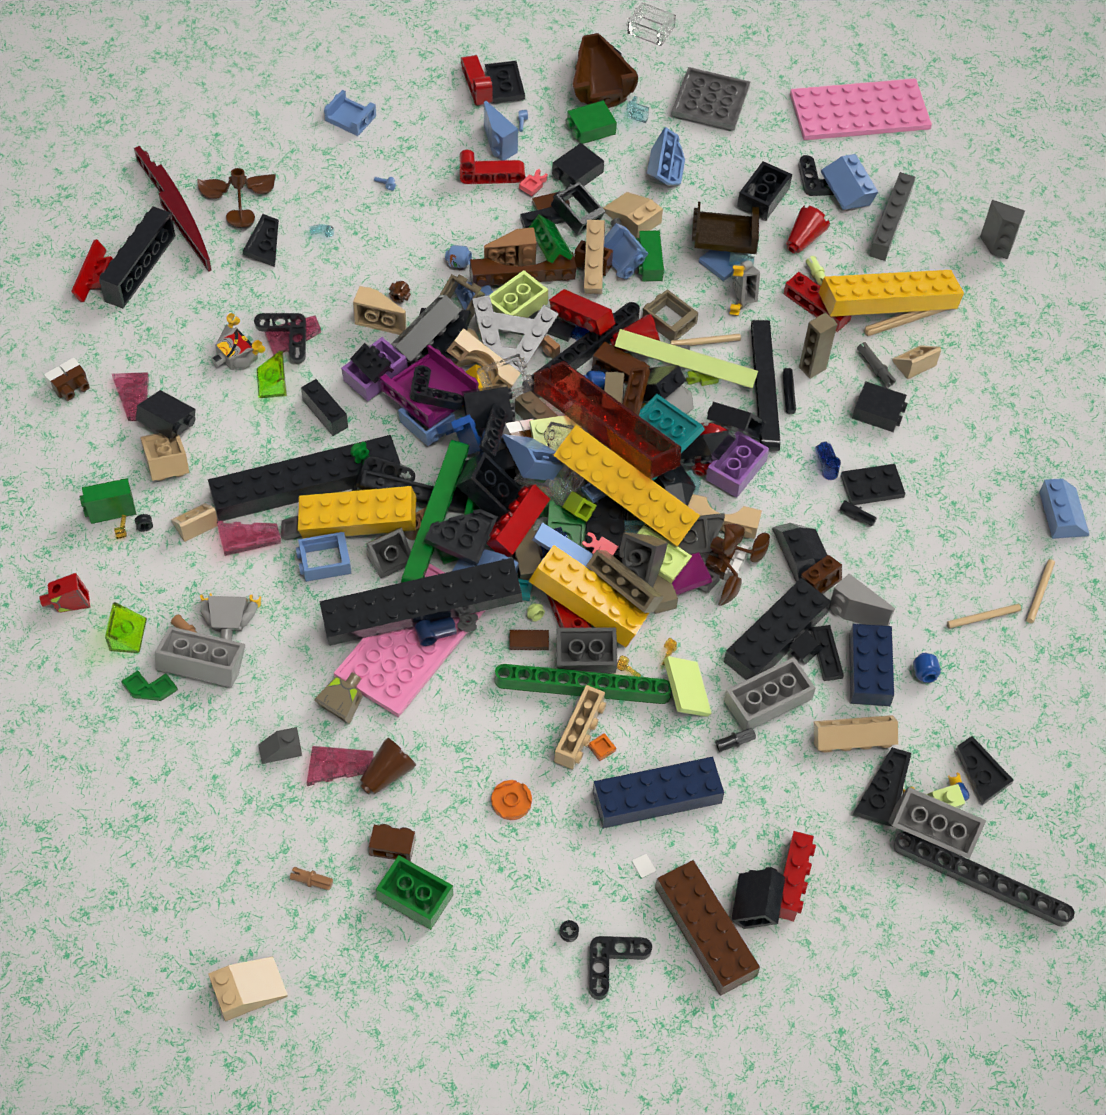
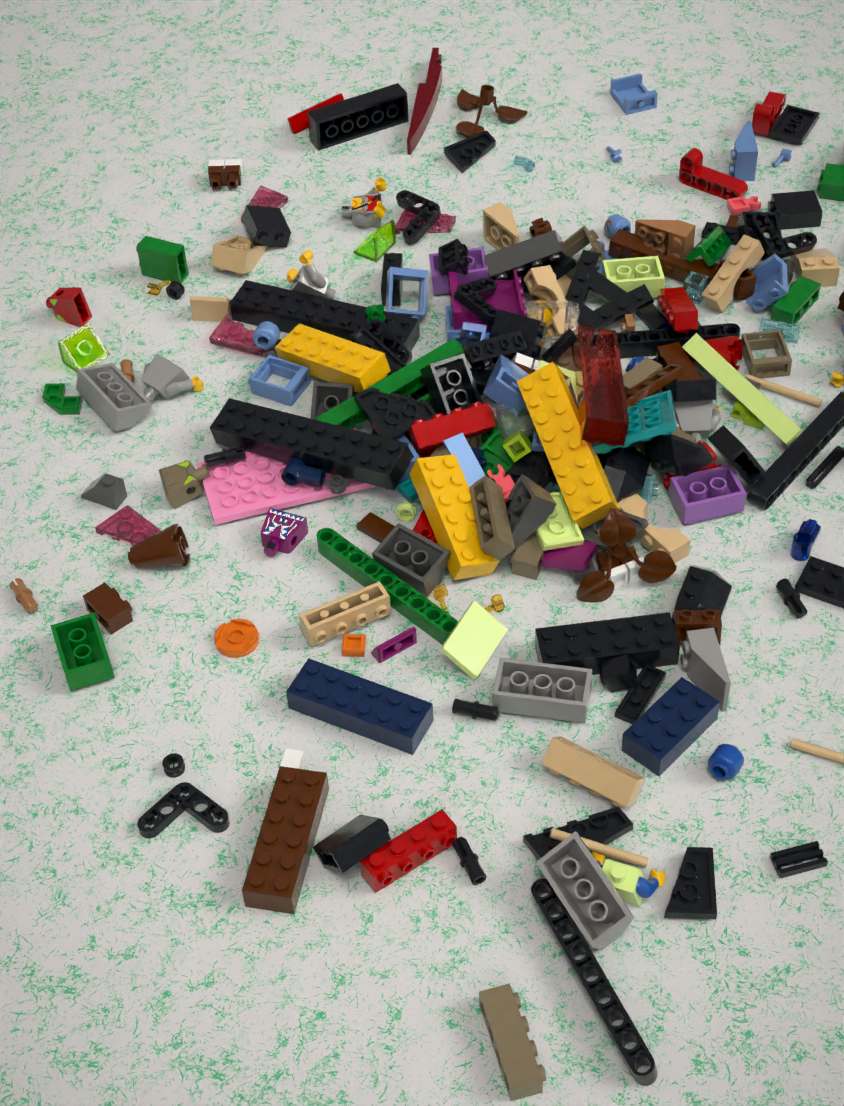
camera: 45 degrees right, 10 degrees down
(264, 452) = (308, 279): none -> light grey torso
(279, 522) = (266, 335): none -> medium blue head
(356, 654) = (224, 456): none -> black axle
(370, 409) = (409, 275): none -> medium blue window
(460, 690) = (282, 532): none -> magenta torso
(531, 401) = (559, 346): none -> black tile
(571, 281) = (695, 286): none -> clear light blue brick
(603, 209) = (780, 243): none -> black beam
(630, 727) = (395, 645): none -> magenta slope
(653, 290) = (789, 331): none -> clear light blue plate
(835, 854) = (469, 861): none -> black axle
(912, 784) = (604, 849): none -> tan bar
(974, 957) = (511, 1043): none -> dark tan brick
(1030, 695) = (797, 855): none -> black tile

